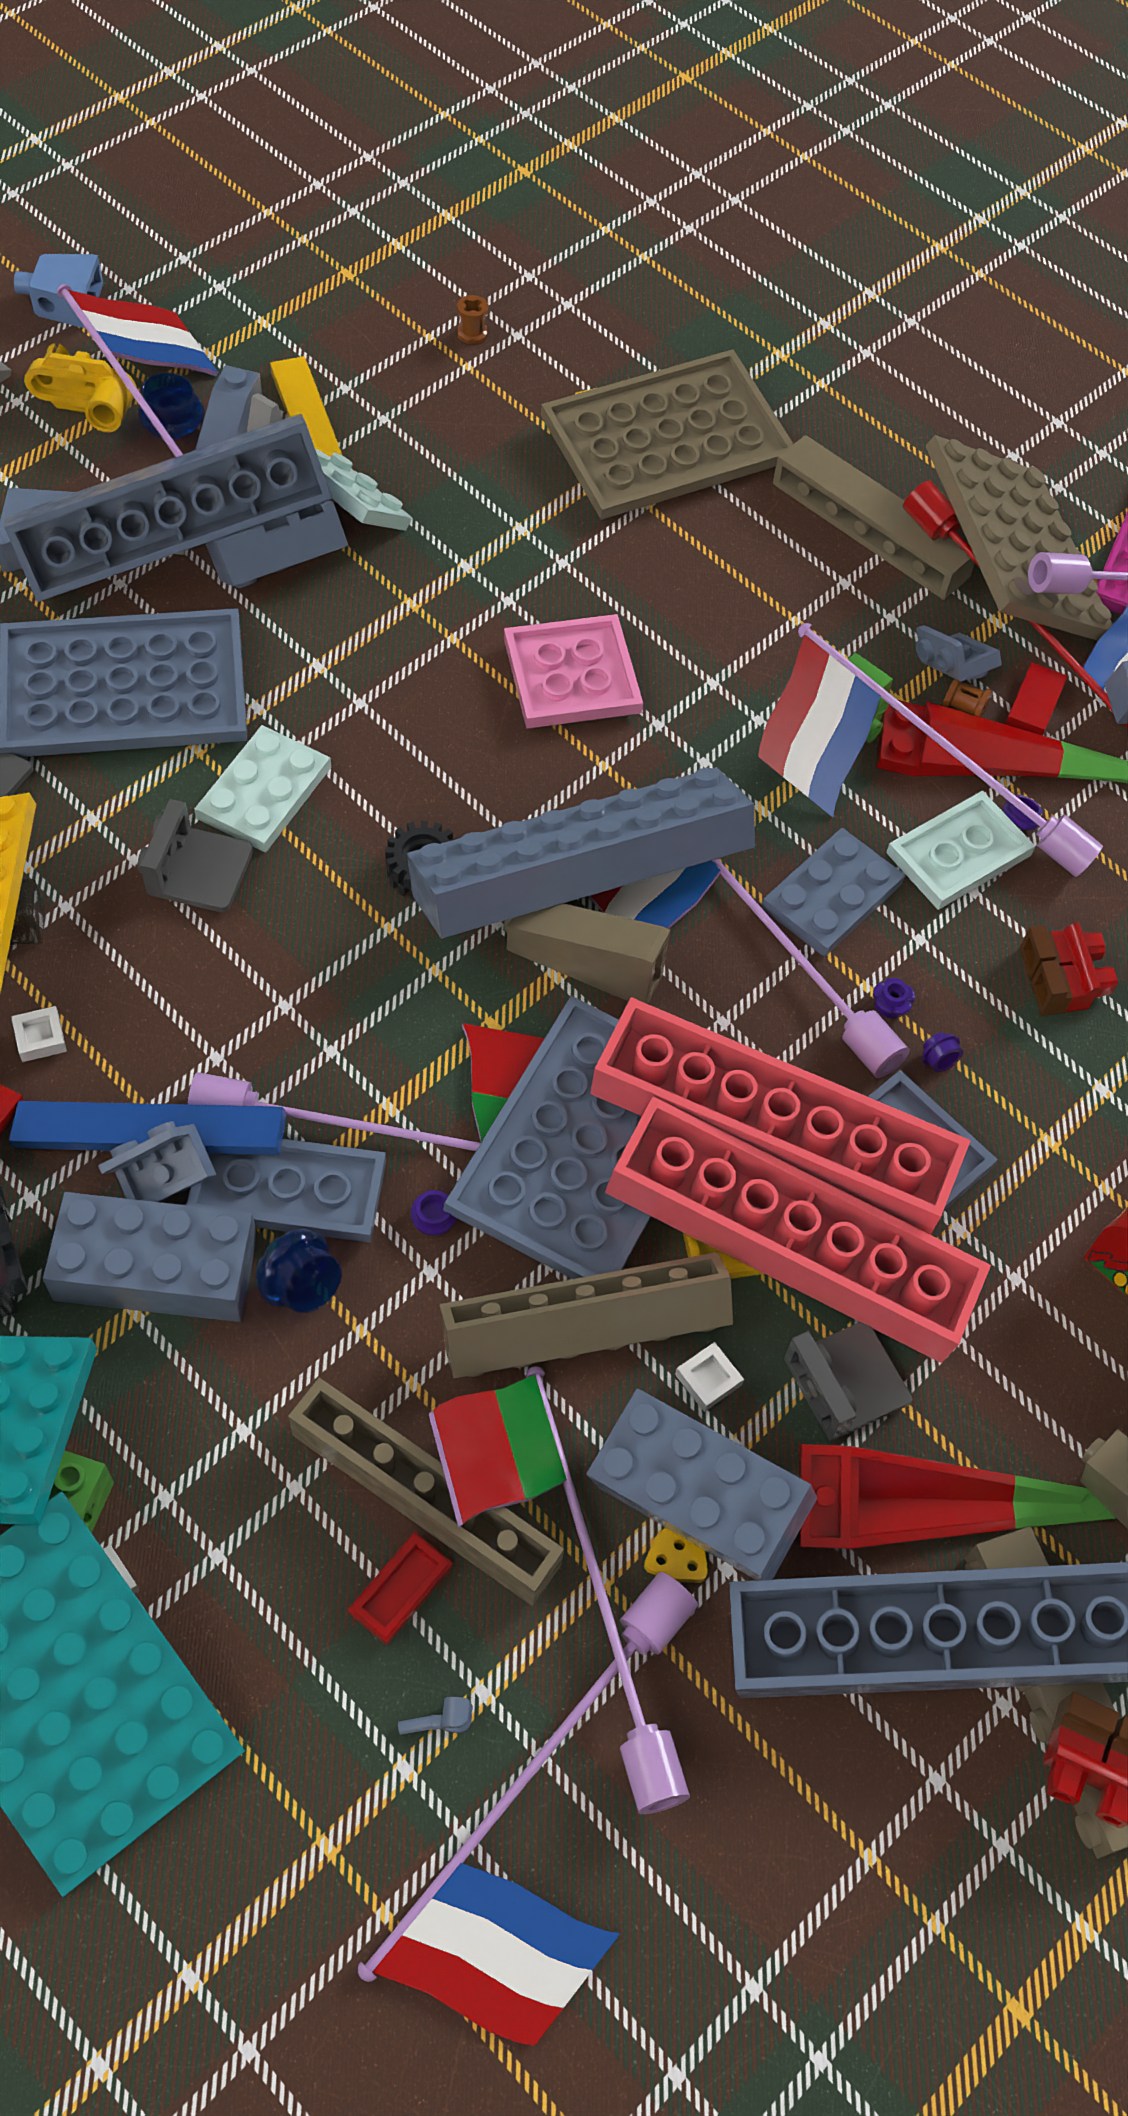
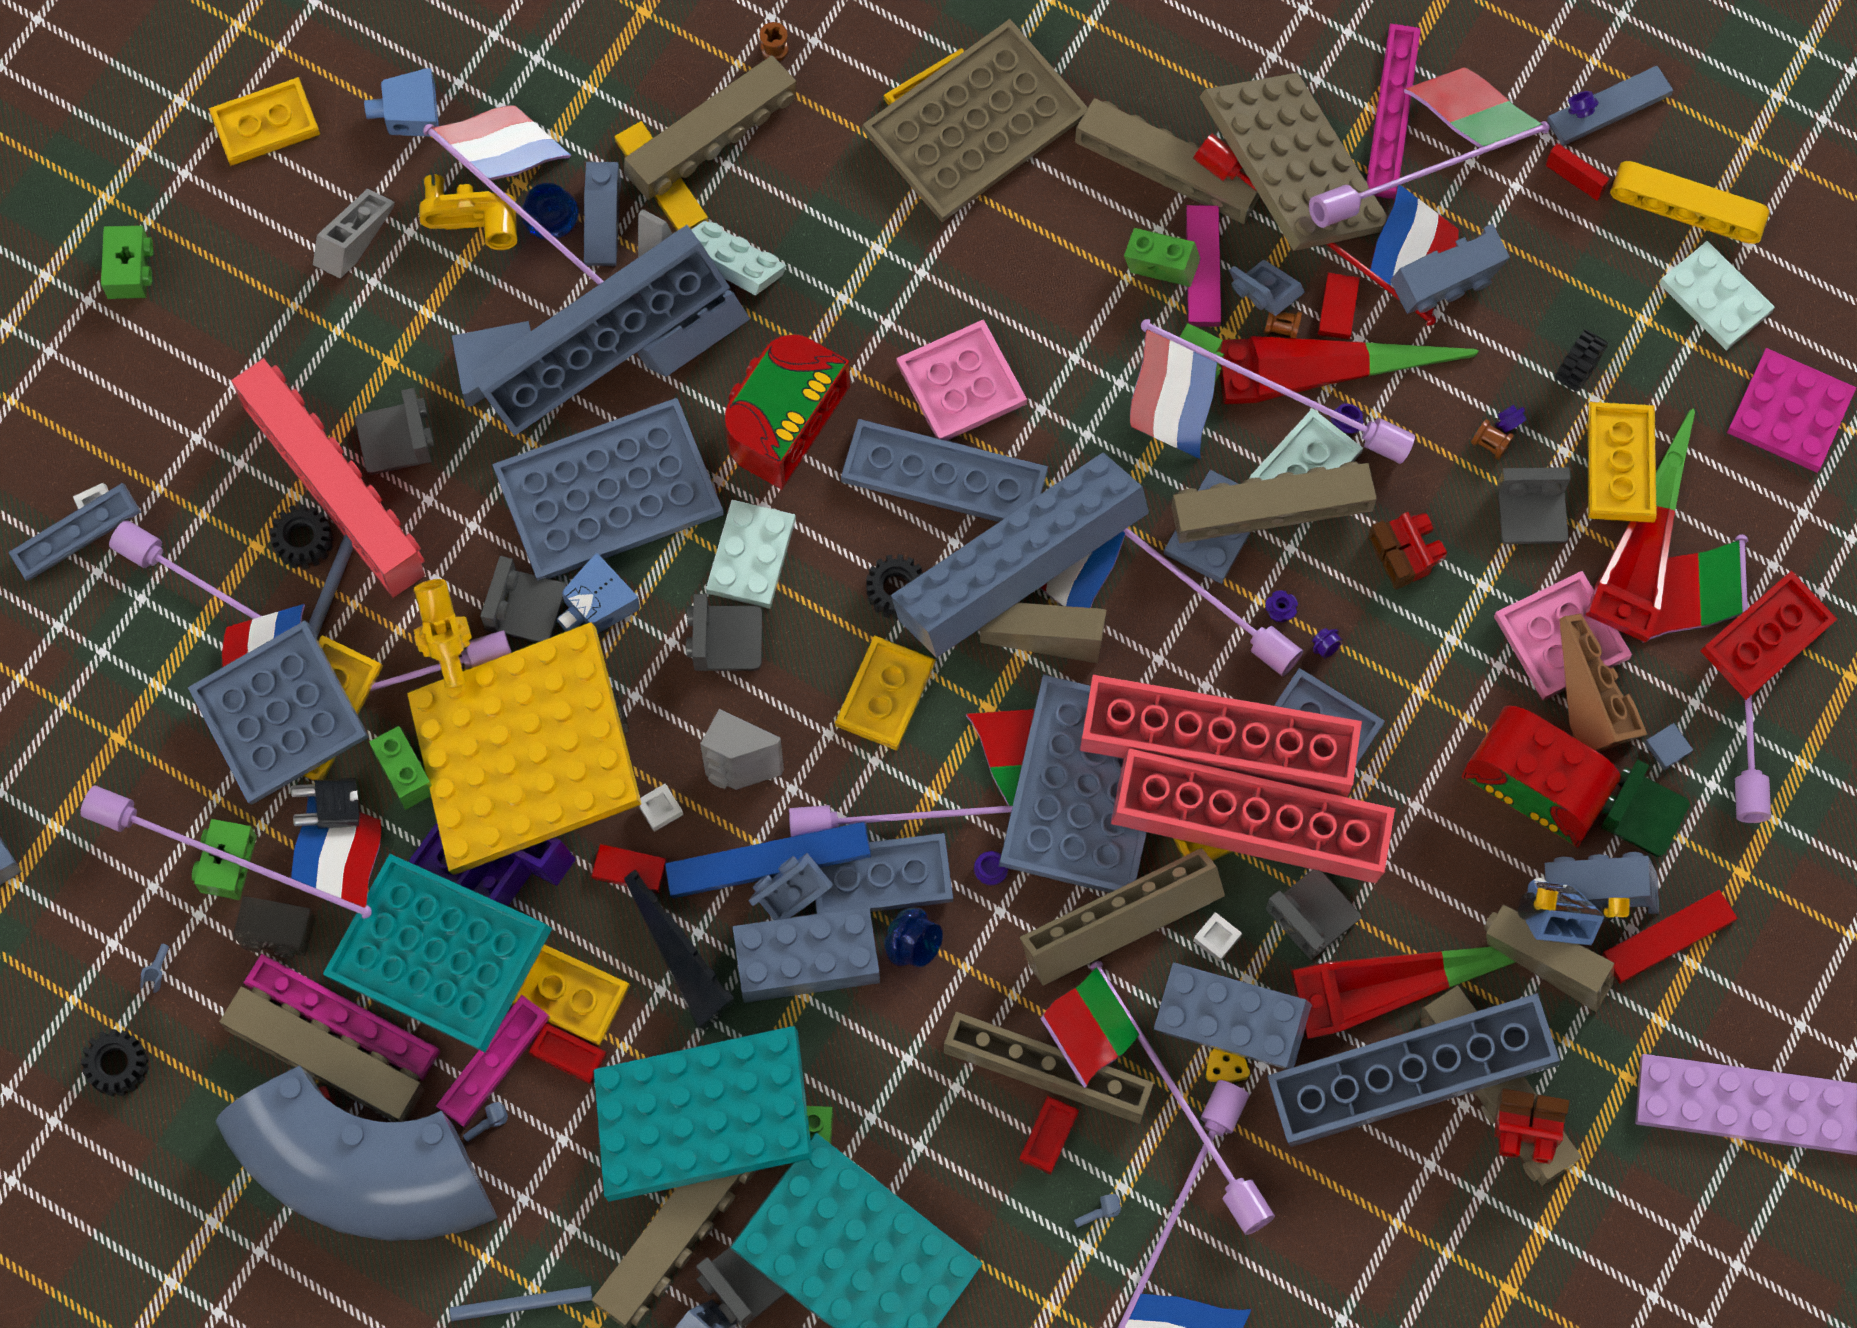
camera: 10 degrees left, 10 degrees up
(63, 785) = (597, 597): none -> medium blue torso
(152, 983) = (739, 753): none -> light grey slope
(356, 639) = (783, 406): none -> brick
(370, 976) = (885, 692): none -> yellow tile
(374, 371) = (710, 128): none -> dark tan brick
(511, 751) = (940, 472): none -> sand blue plate
(842, 598) = (1162, 257): none -> bright green brick
(889, 618) = (1204, 293): none -> dark pink tile
(913, 872) = (1273, 502): none -> dark tan brick

